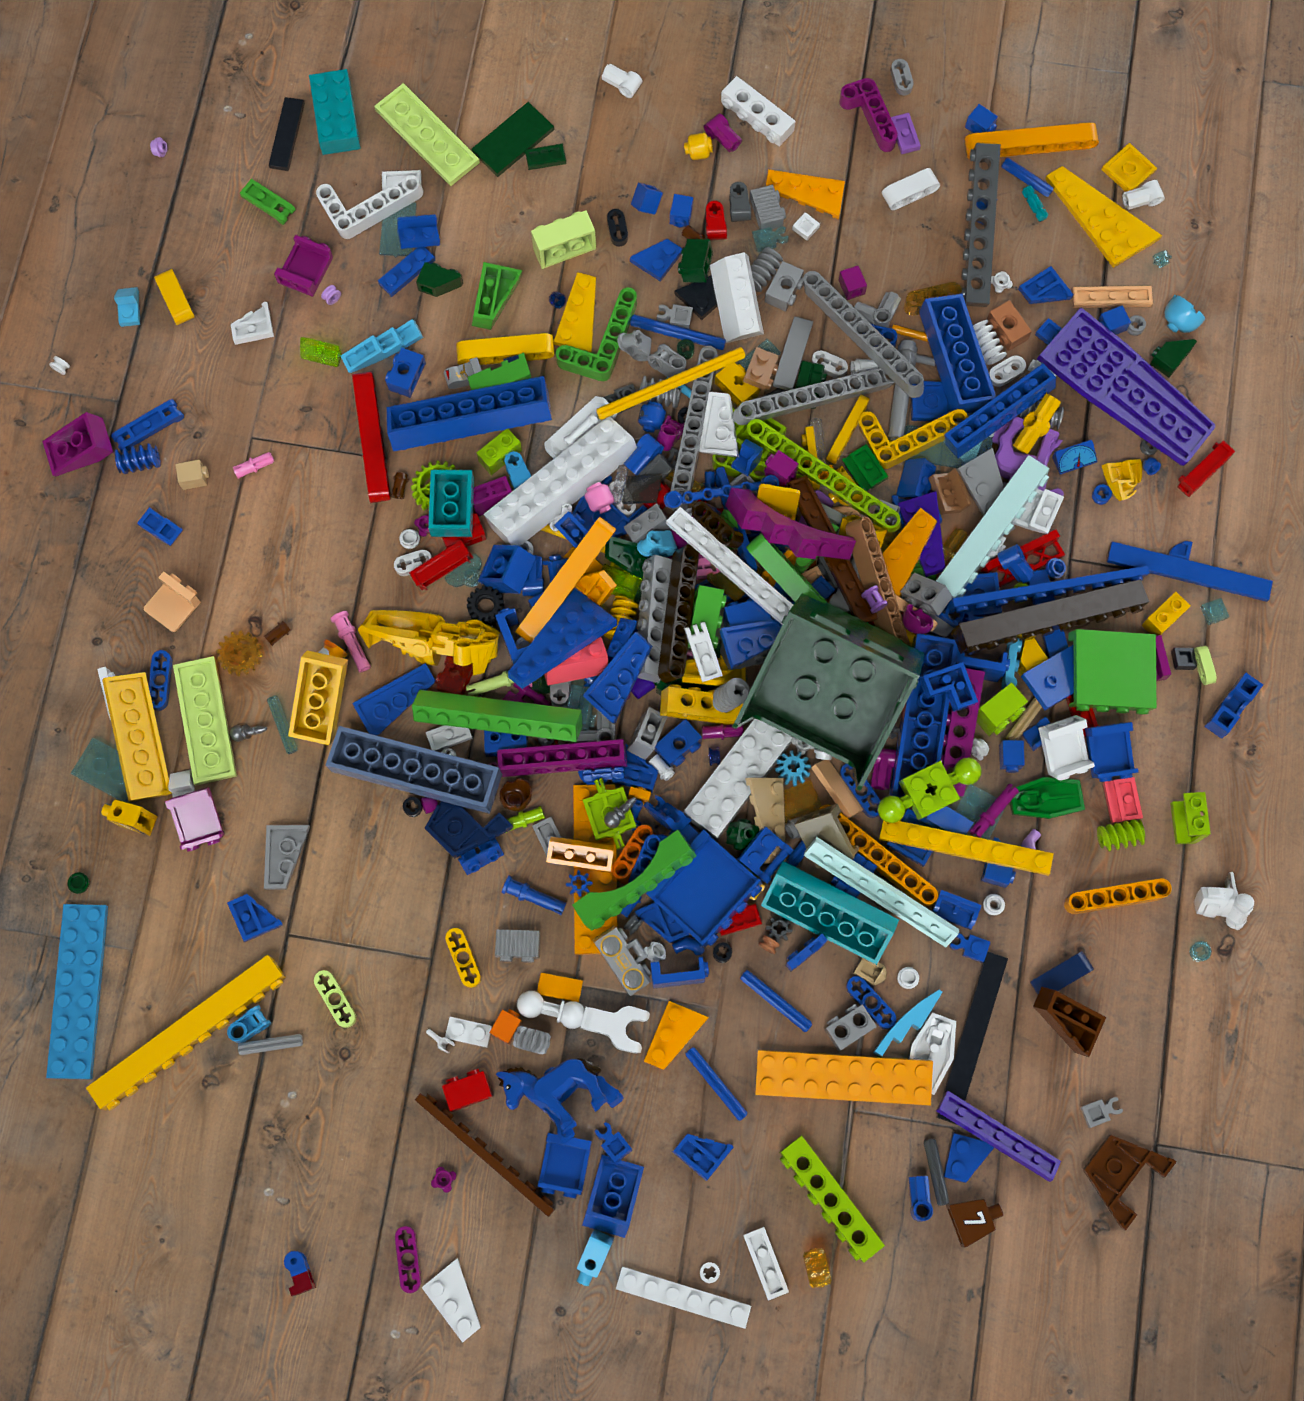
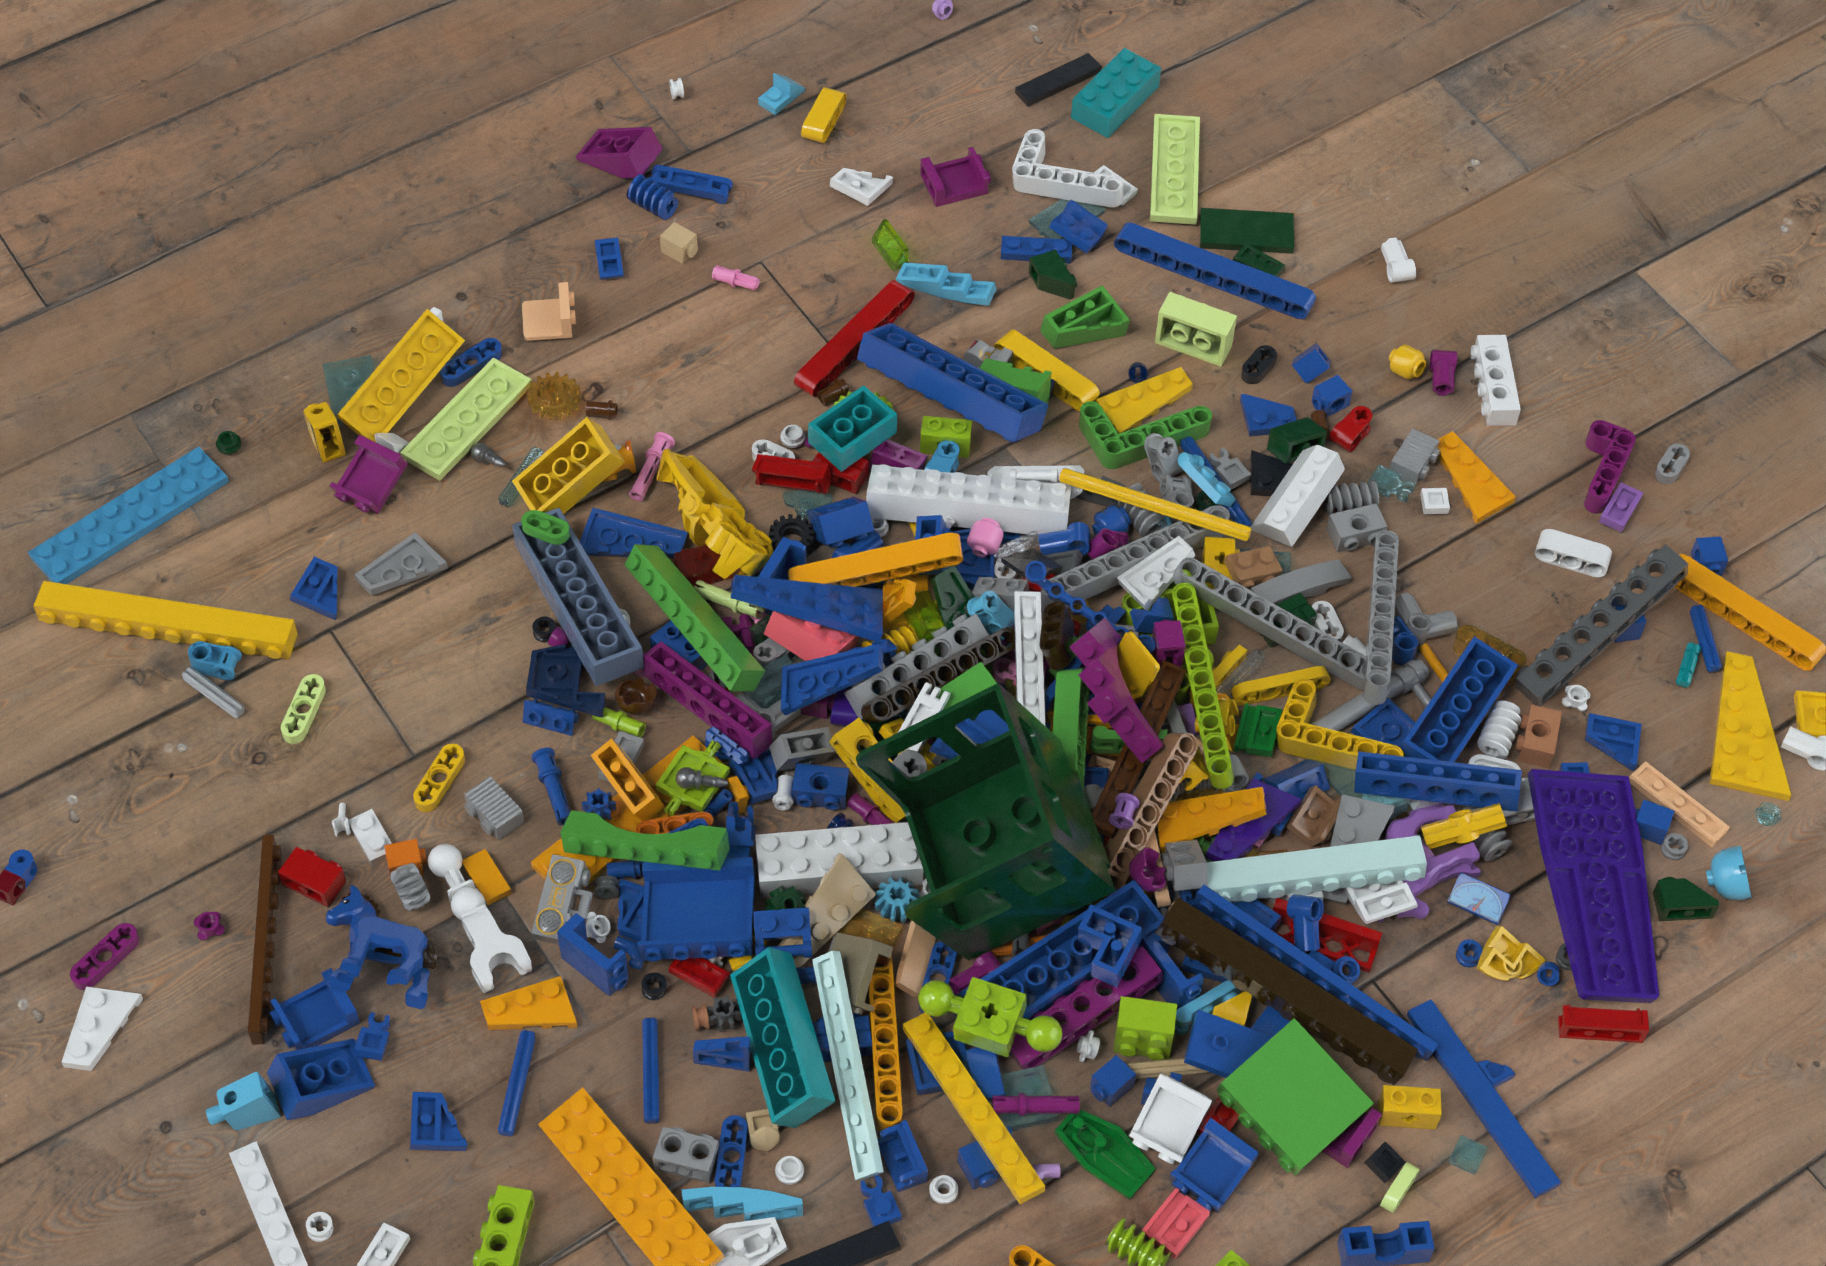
camera: 45 degrees right, 20 degrees down
(267, 201) = (982, 111): bright green plate -> none
(331, 295) = (950, 214): lavender bush -> none
(351, 748) = (547, 527): none -> bright green plate
(405, 383) = (941, 316): blue brick -> none
(447, 736) = (638, 604): white plate -> none
(526, 186) = (1215, 270): none -> blue beam
(674, 336) = (1206, 479): none -> medium azure plate
(739, 204) = (1392, 432): dark grey piece -> none
(852, 282) = (1425, 577): magenta panel -> none

